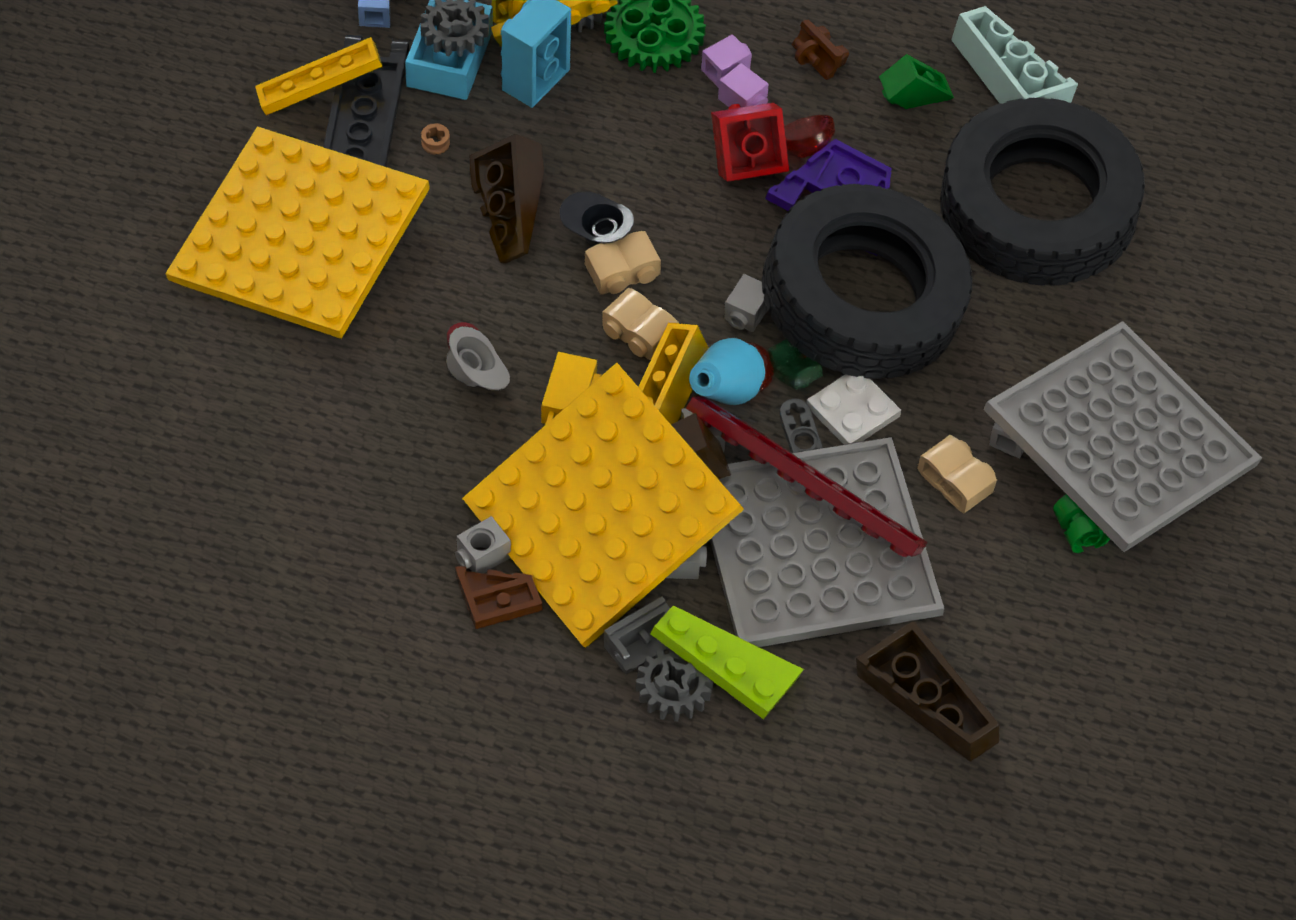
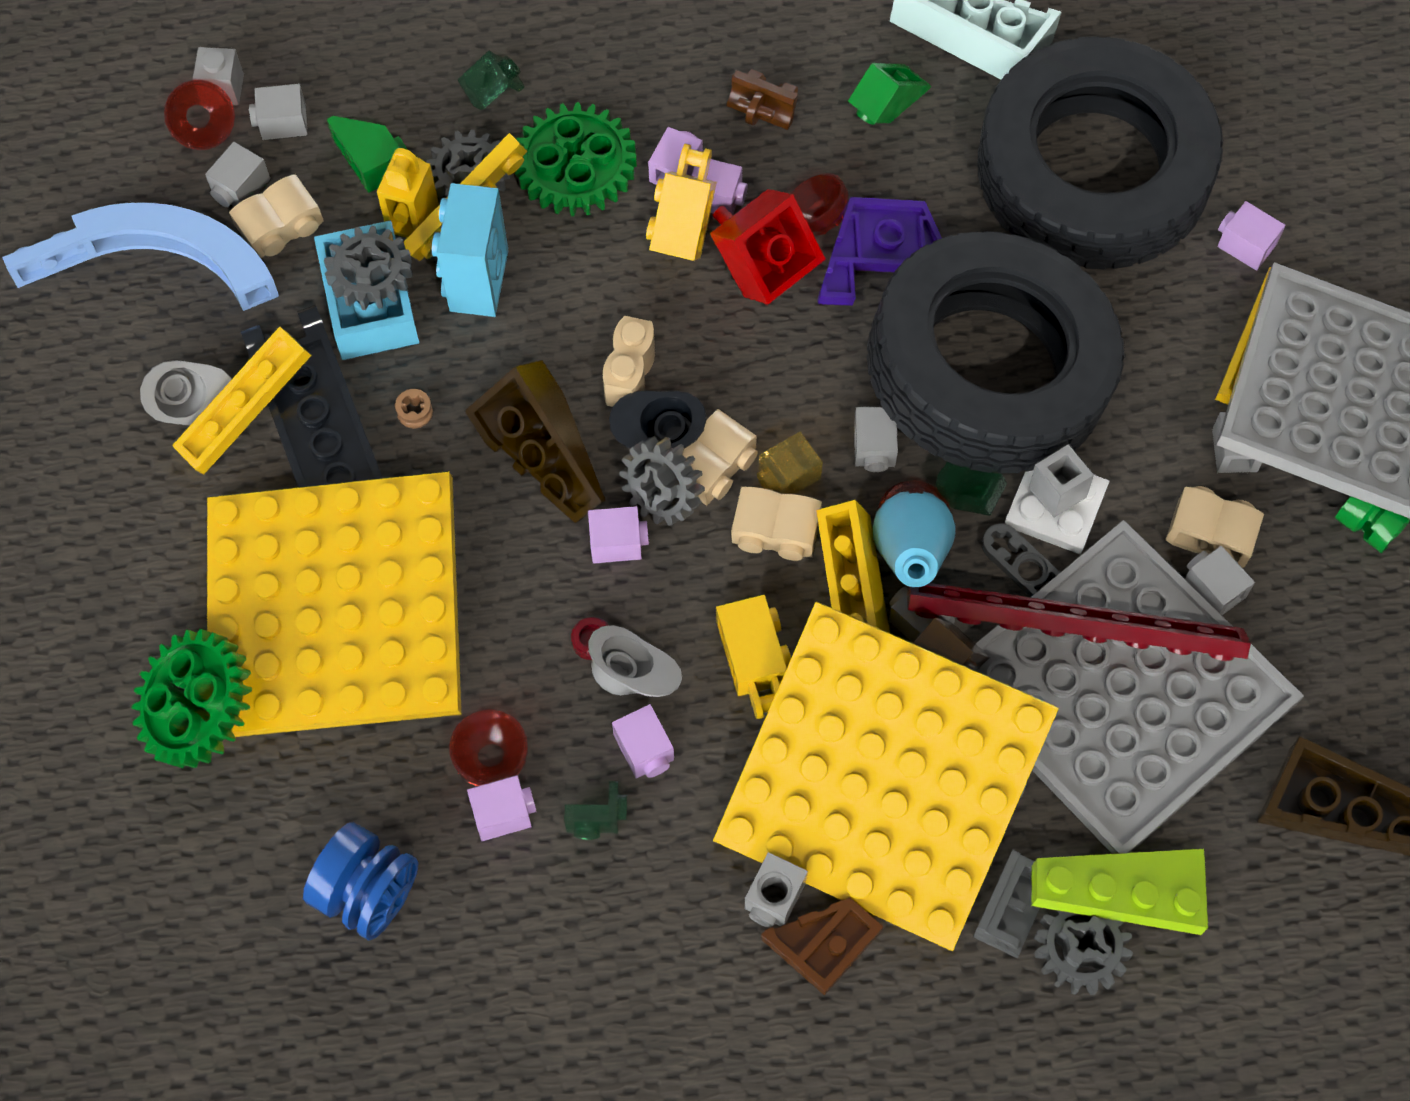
camera: 25 degrees left, 10 degrees up
(186, 234) = (212, 680): none -> green gear
(207, 401) = (360, 880): none -> blue wheel
(280, 45) = (181, 390): none -> light grey piece
(330, 408) = (501, 807): none -> lavender brick
(346, 356) = (481, 730): none -> clear red piece
(392, 446) = (591, 820): none -> clear green bracket
(454, 414) = (643, 742): none -> lavender brick
(521, 279) = (616, 534): none -> lavender brick
(573, 256) = (662, 480): none -> dark grey gear
(607, 172) = (630, 359): none -> tan brick
(673, 292) = (789, 466): none -> clear yellow brick
(707, 89) = (683, 207): none -> yellow brick
(856, 383) = (1061, 481): none -> light grey brick
(934, 508) = (1219, 579): none -> light grey brick
(1122, 299) = (1250, 235): none -> lavender brick

